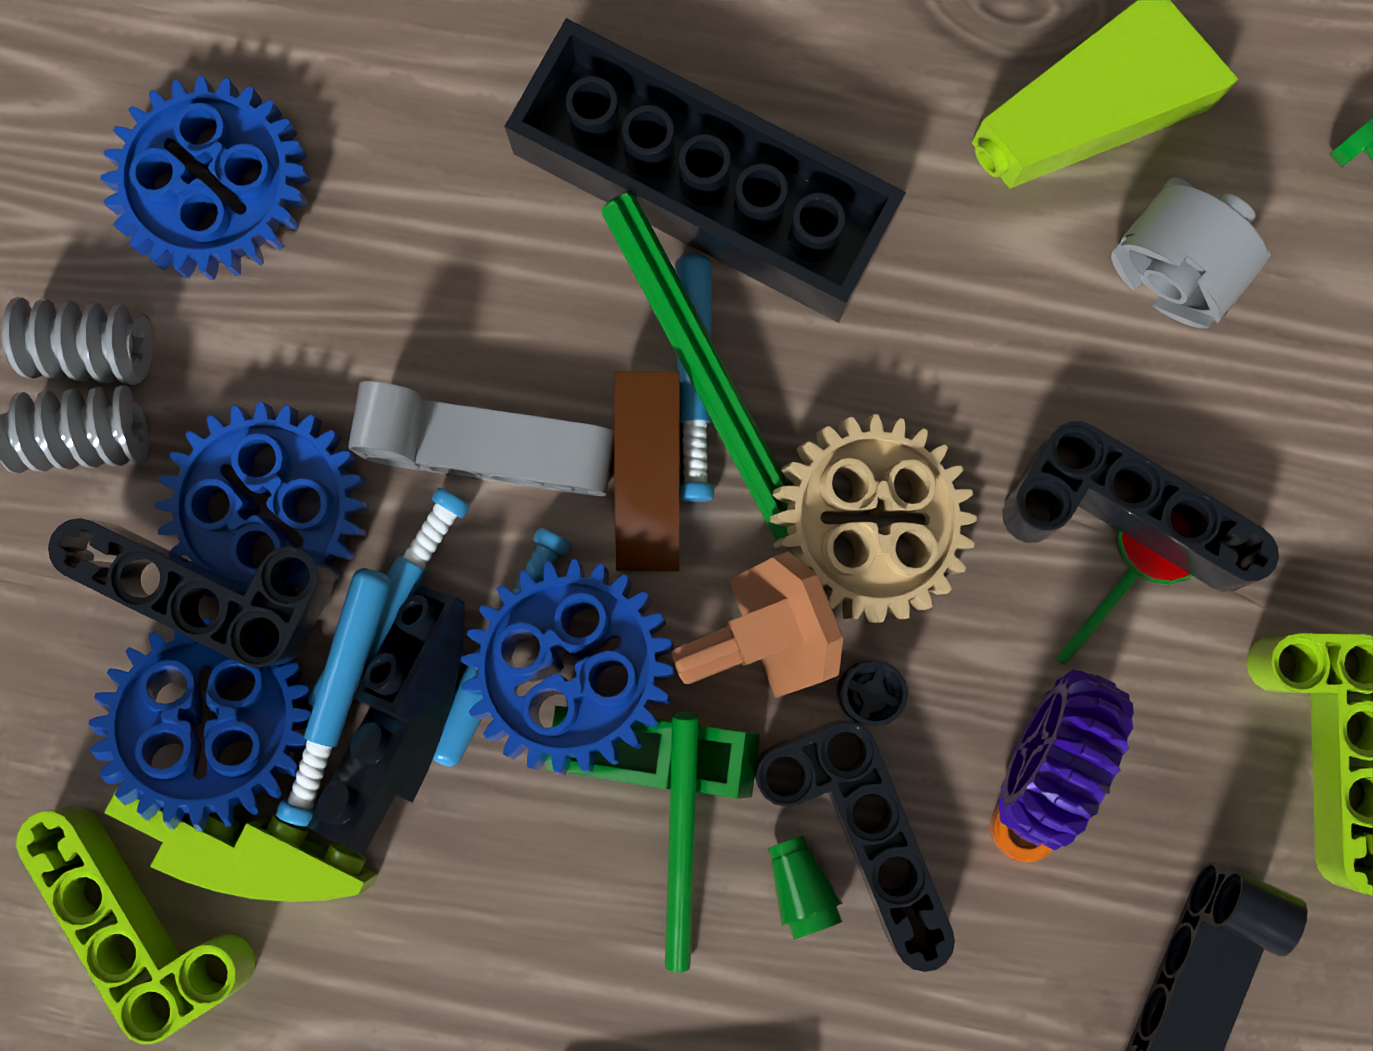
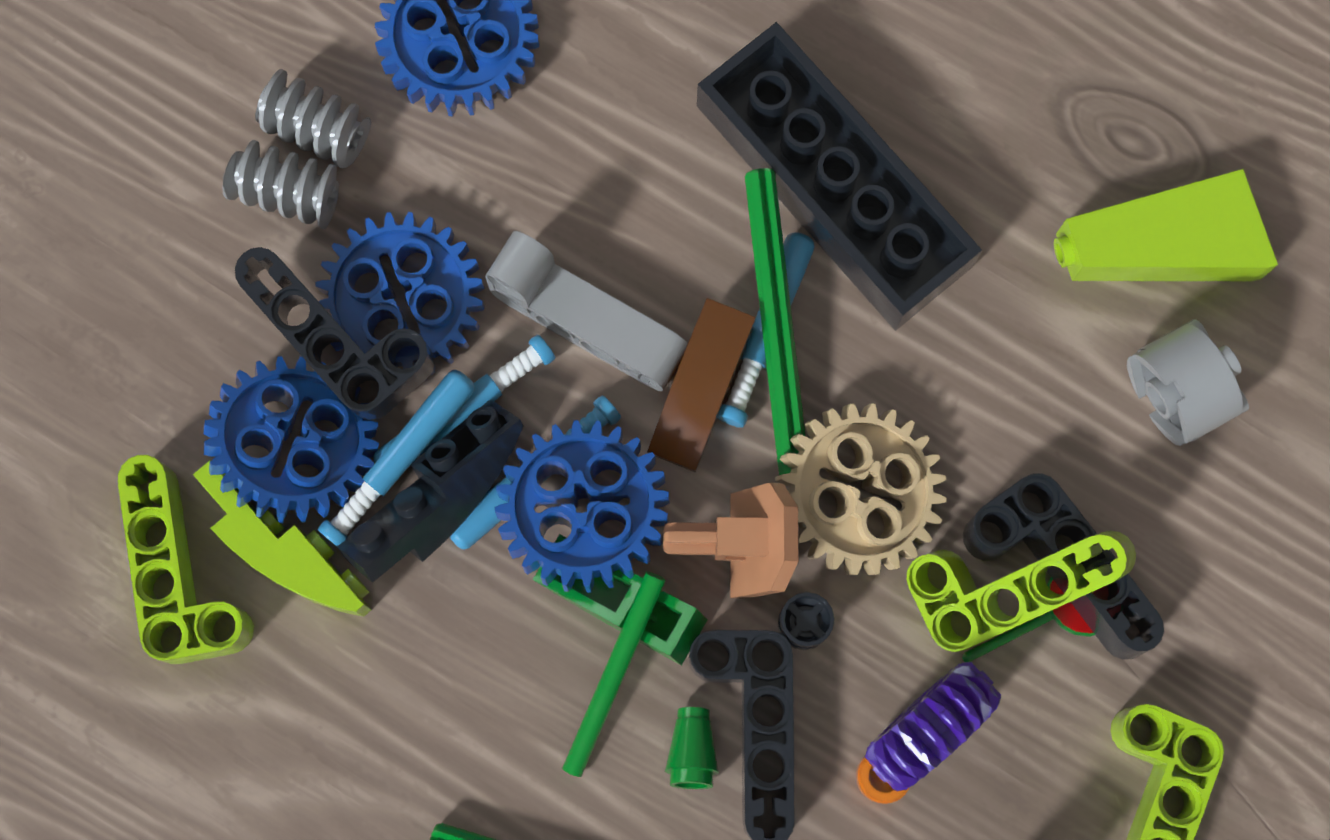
camera: 20 degrees right, 5 degrees down
(1103, 554) = (1027, 584): none -> lime beam

